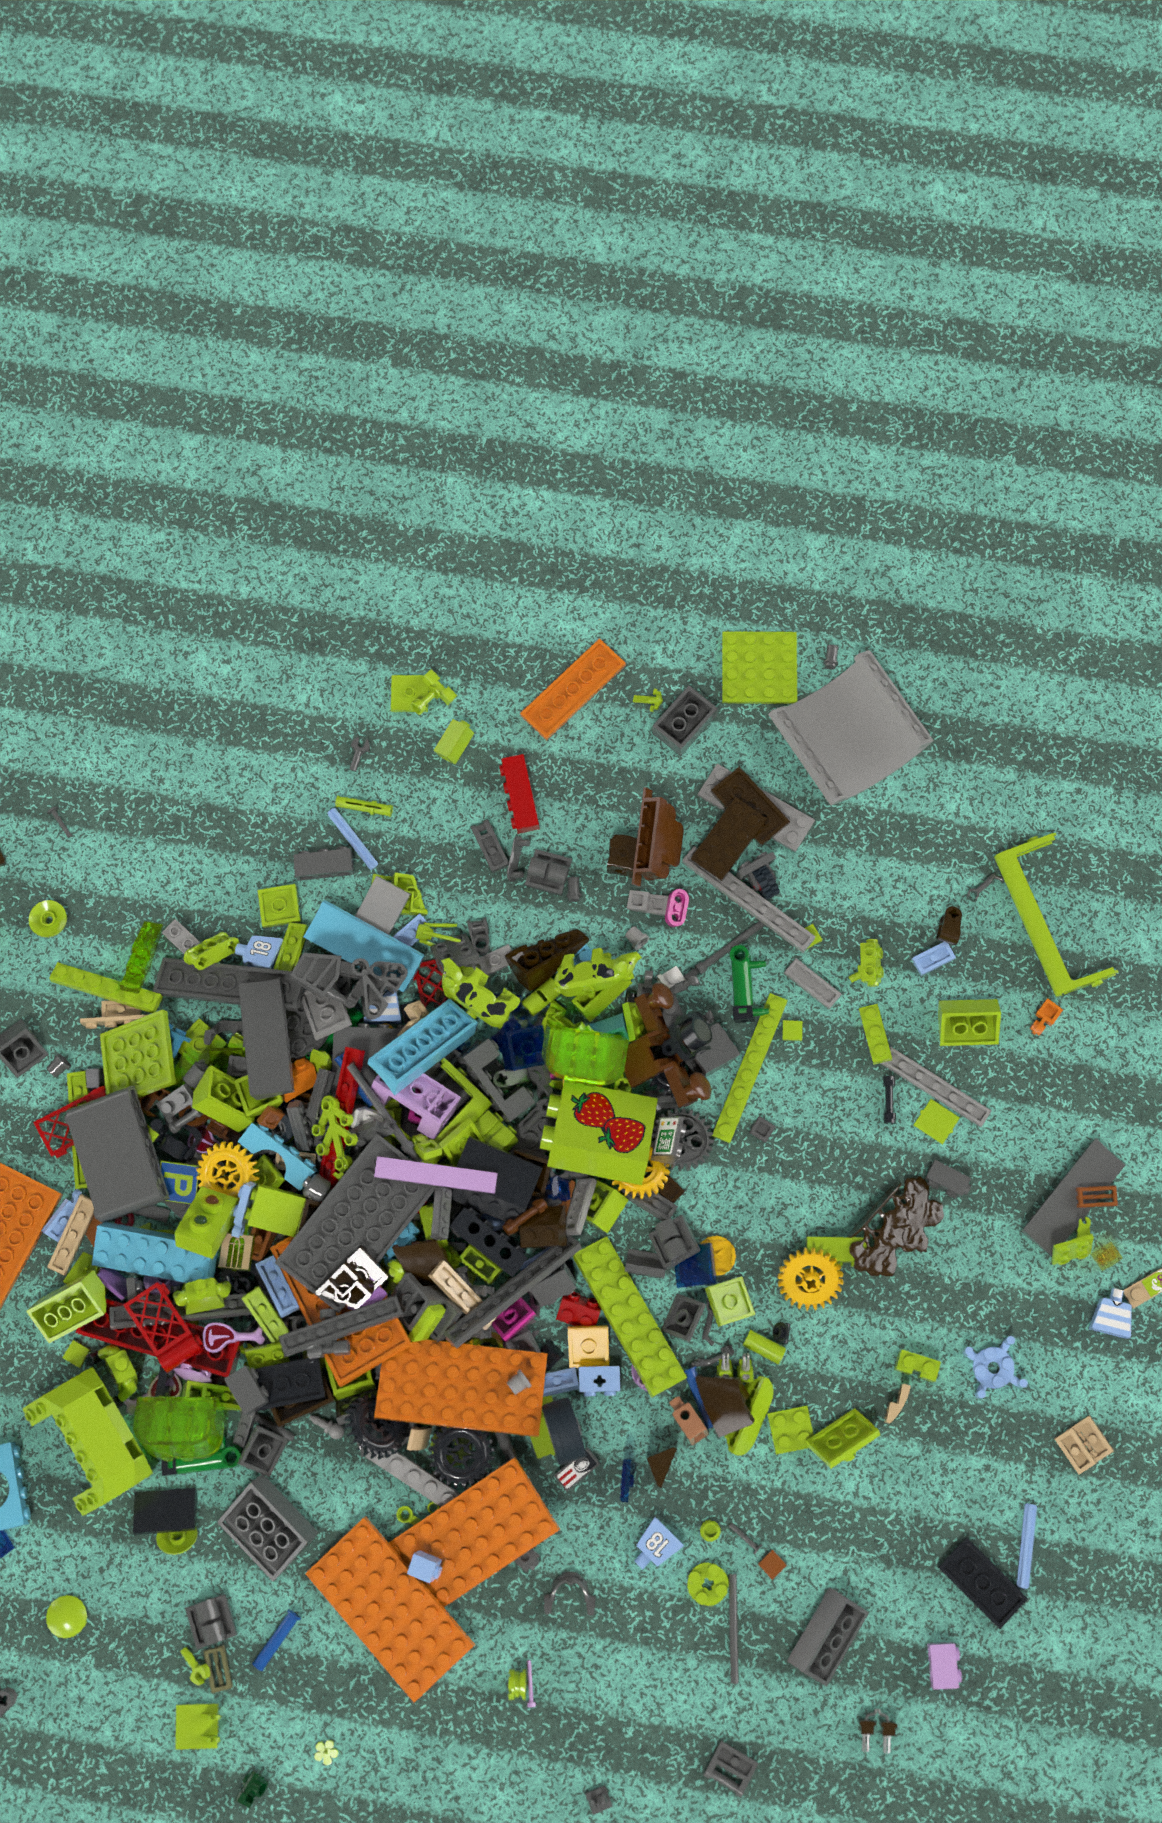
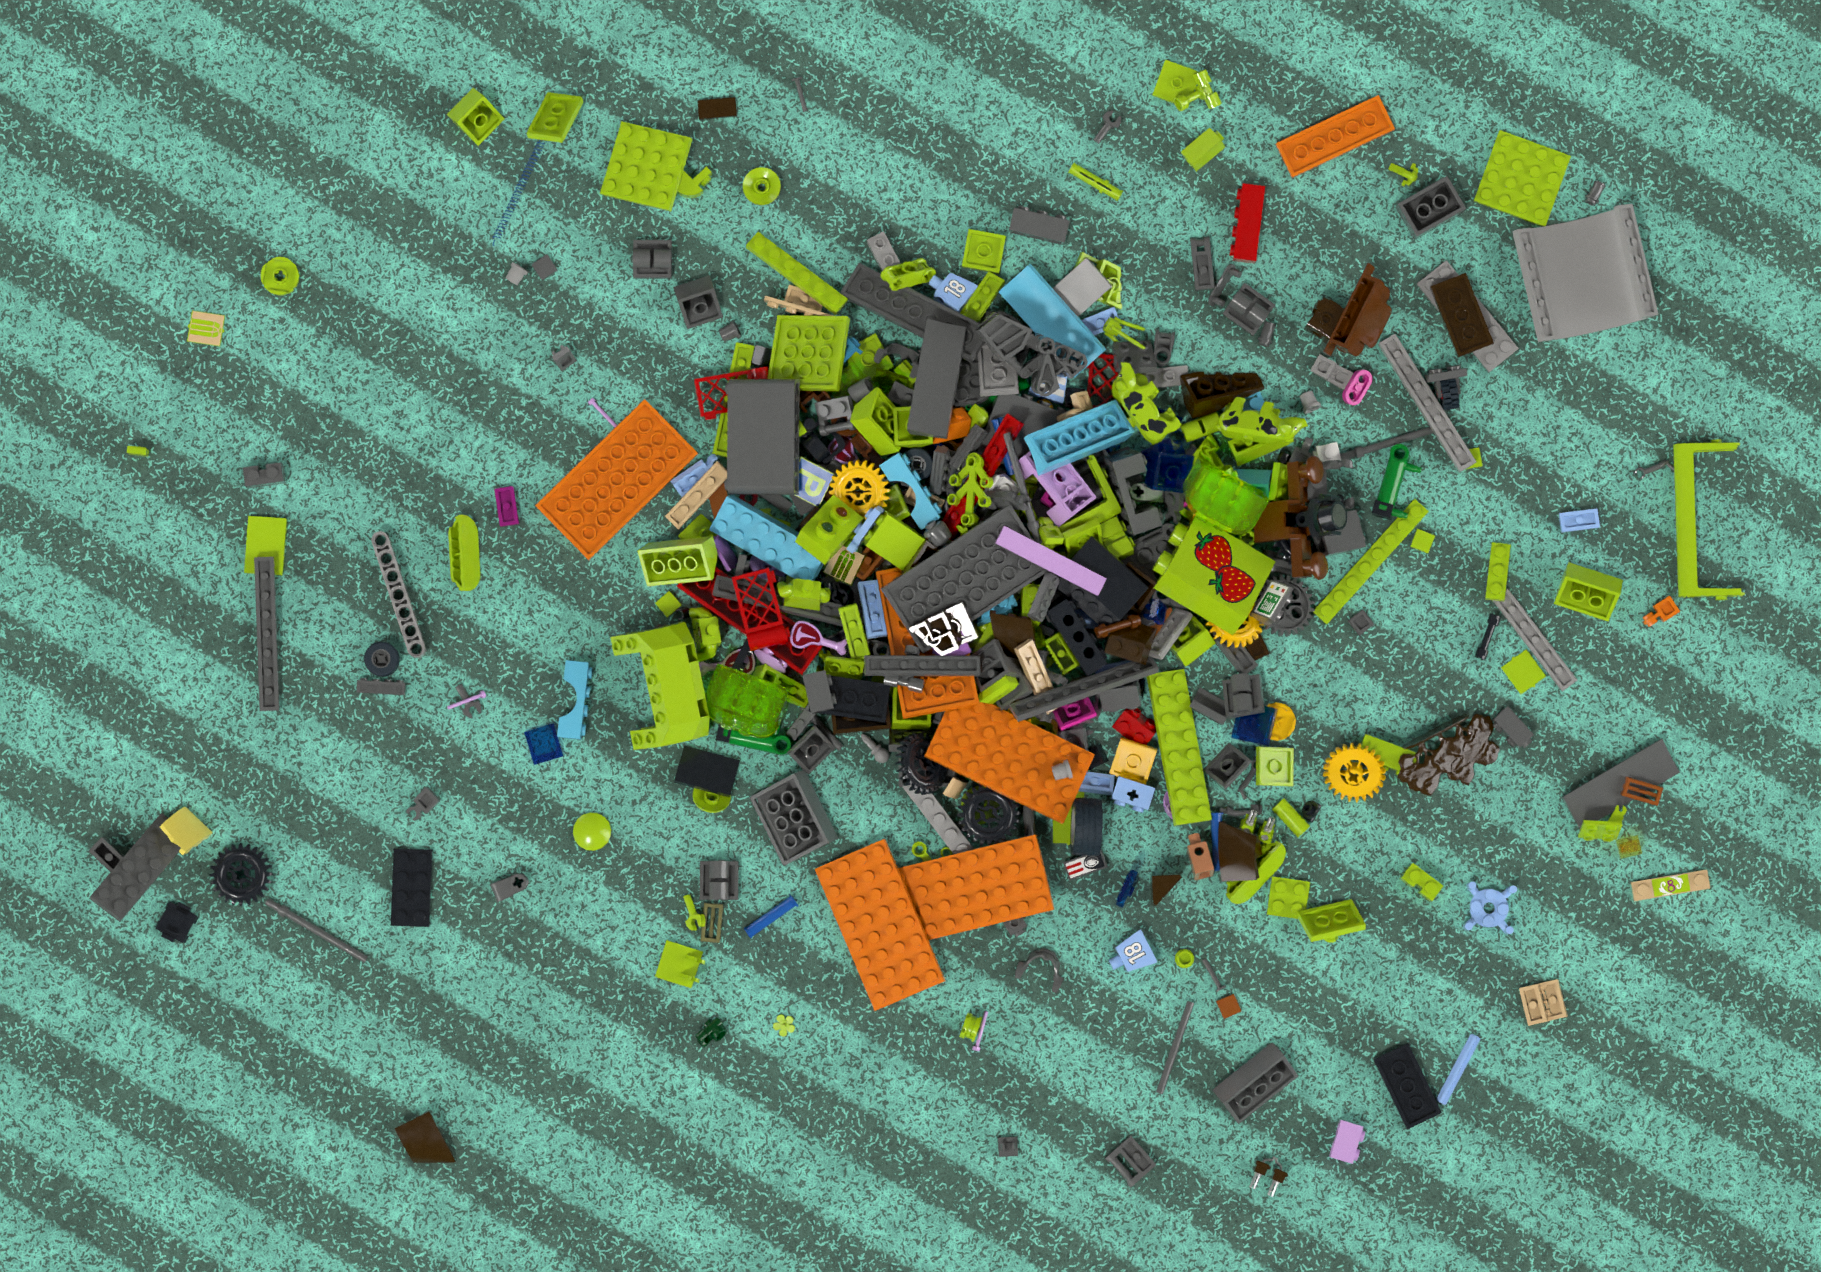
camera: 10 degrees right, 10 degrees up
(141, 957) = (839, 255): clear neon green slope -> none
(270, 1117) = (916, 453): dark orange tile -> none
(352, 838) = (1074, 209): light blue axle -> none
(396, 1270) = (986, 633): lime plate -> none
(425, 1567) = (924, 899): light blue brick -> none
(703, 1595) = (1157, 995): lime plate -> none
(728, 839) = (1430, 340): dark brown plate -> none
(812, 983) = (1457, 504): light grey plate -> none
(870, 969) = (1516, 509): lime brick -> none
(894, 1409) = (1386, 911): tan slope -> none
(949, 926) = (1605, 496): dark brown piece -> none
(1112, 1316) = (1613, 901): light blue torso -> none

